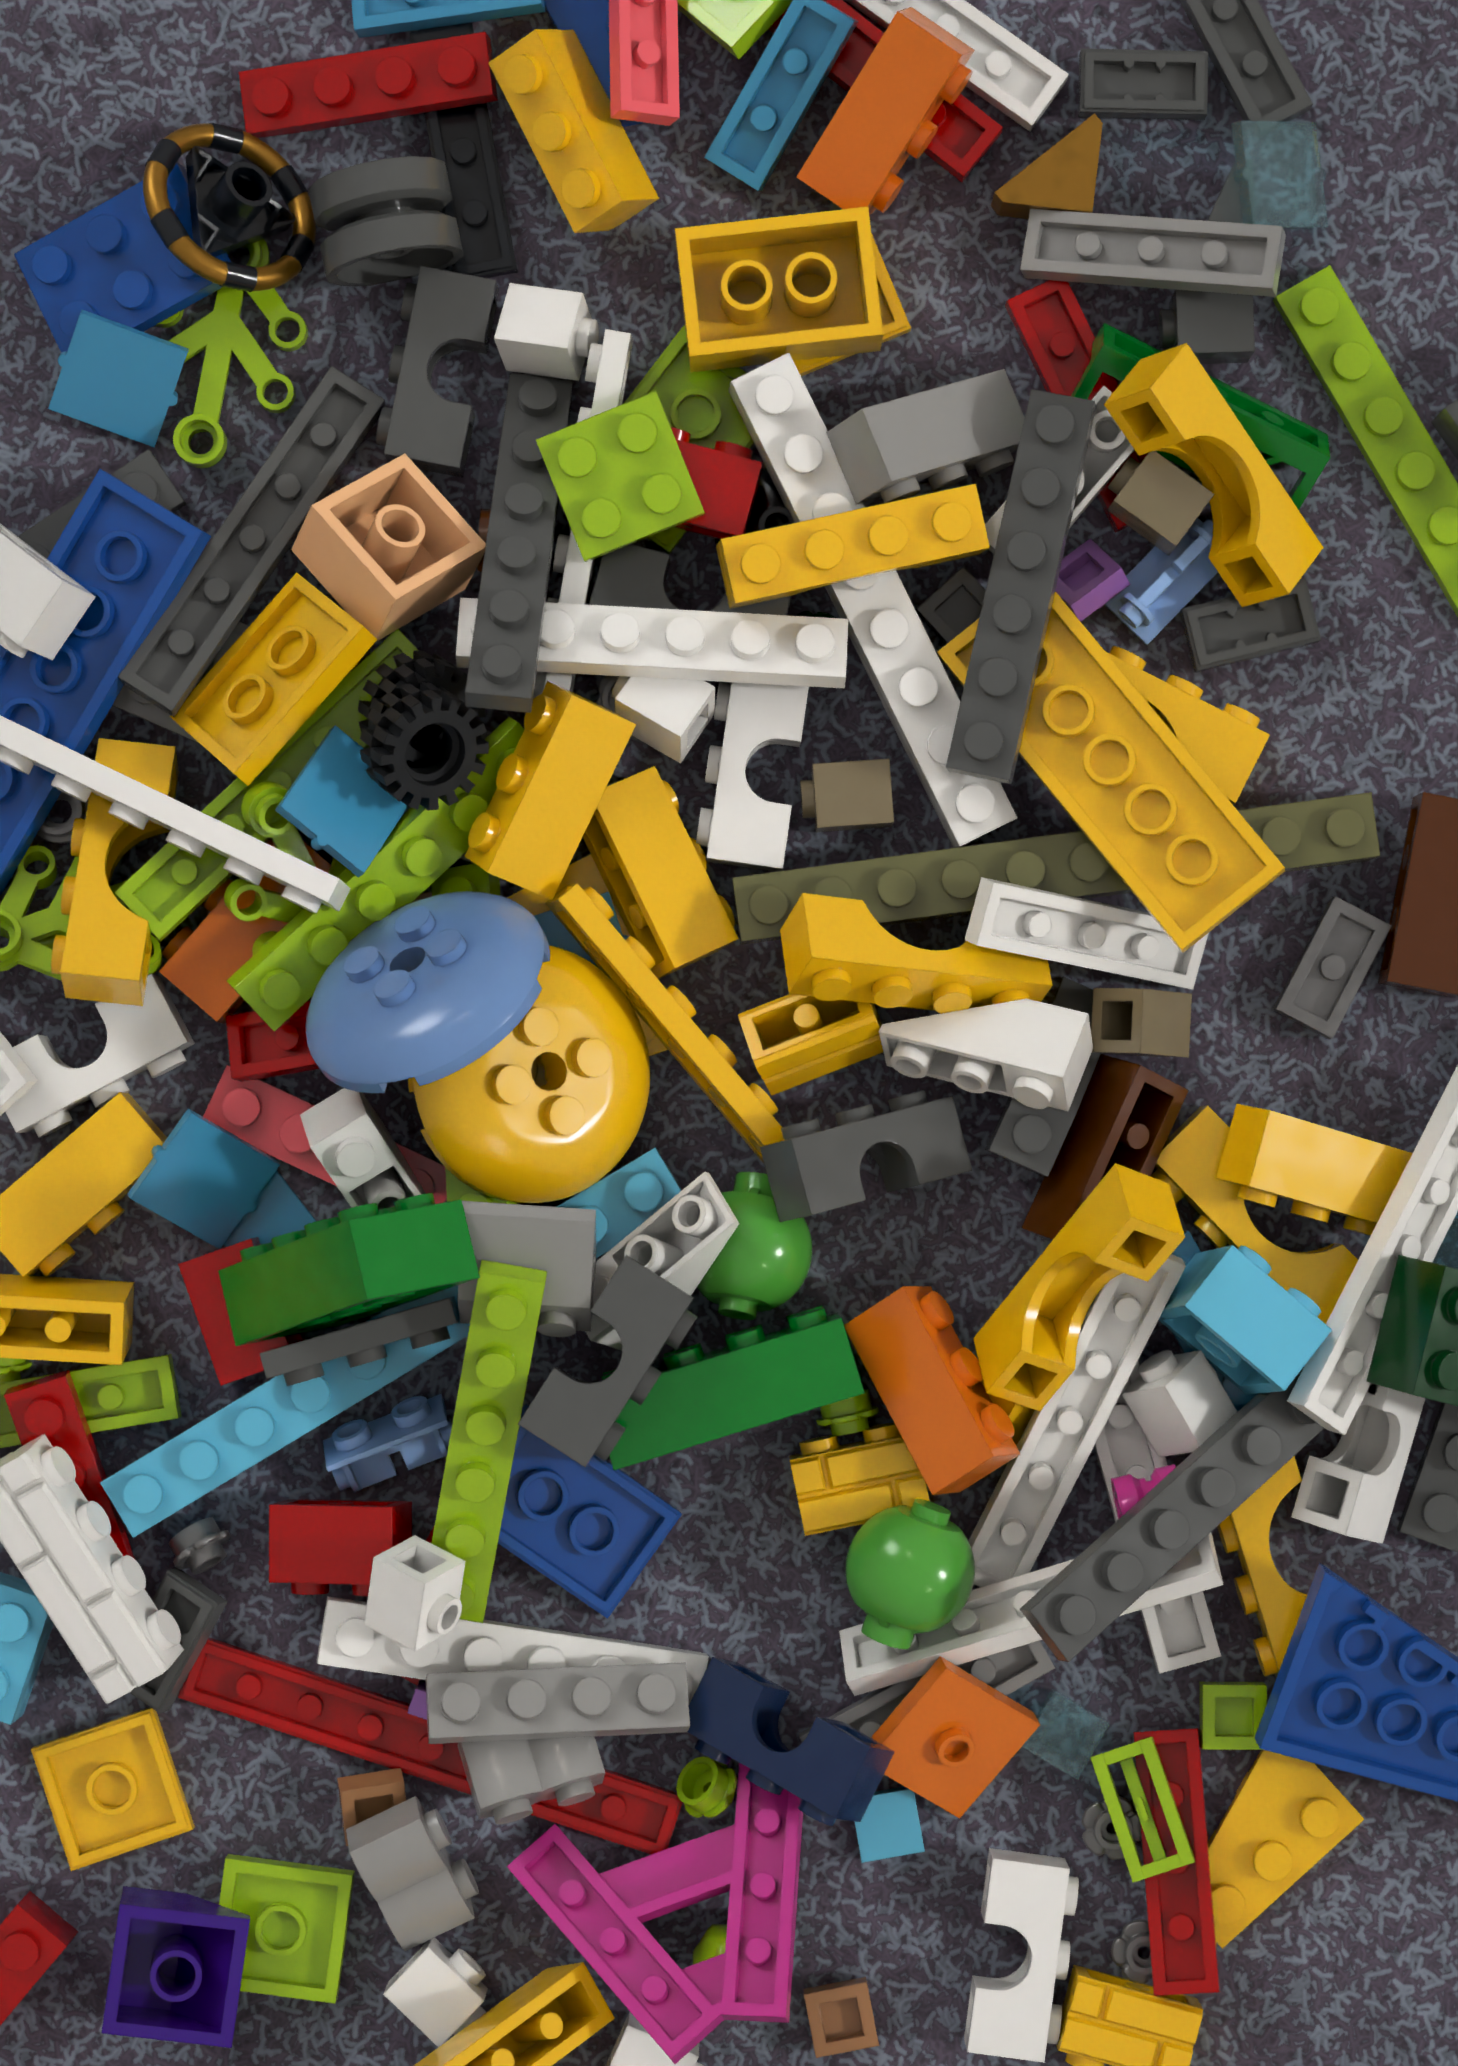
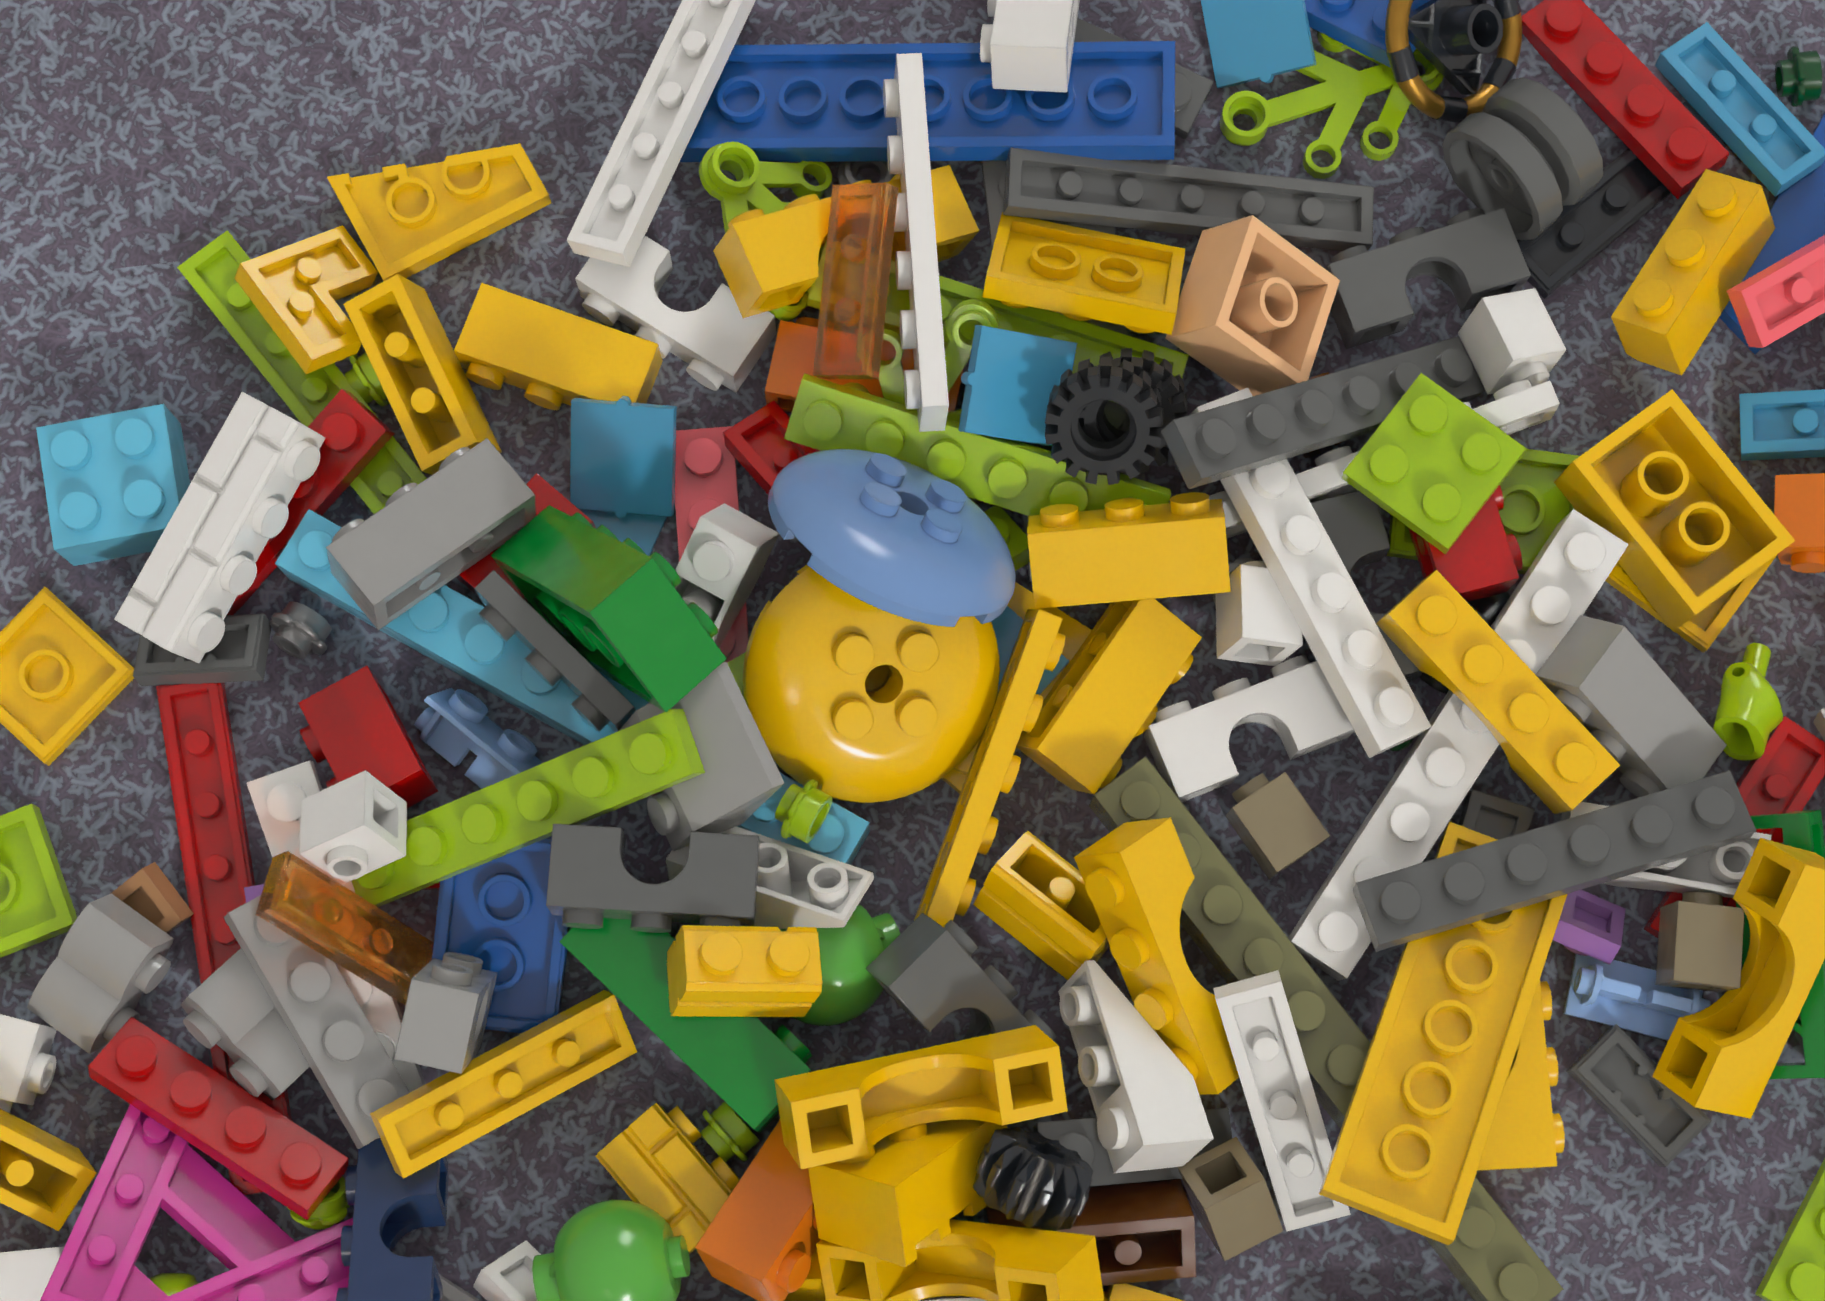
camera: 60 degrees right, 10 degrees down
(171, 890) = (855, 281): none -> clear orange tile
(187, 1387) = (430, 532): none -> light grey brick
(495, 1644) = (342, 926): none -> clear orange tile
(593, 1836) = (218, 1117): none -> red plate
(617, 1201) = (803, 811): none -> lime plate
(617, 1597) = (446, 1013): none -> light grey brick
(701, 1579) = (503, 1083): none -> yellow plate
(731, 1330) = (743, 971): none -> yellow brick
(894, 1302) = (984, 1078): none -> yellow arch
(978, 1281) = (901, 1189): none -> yellow wedge
(979, 327) = (1747, 705): none -> lime piece
(1037, 1184) = (1033, 1179): none -> black gear

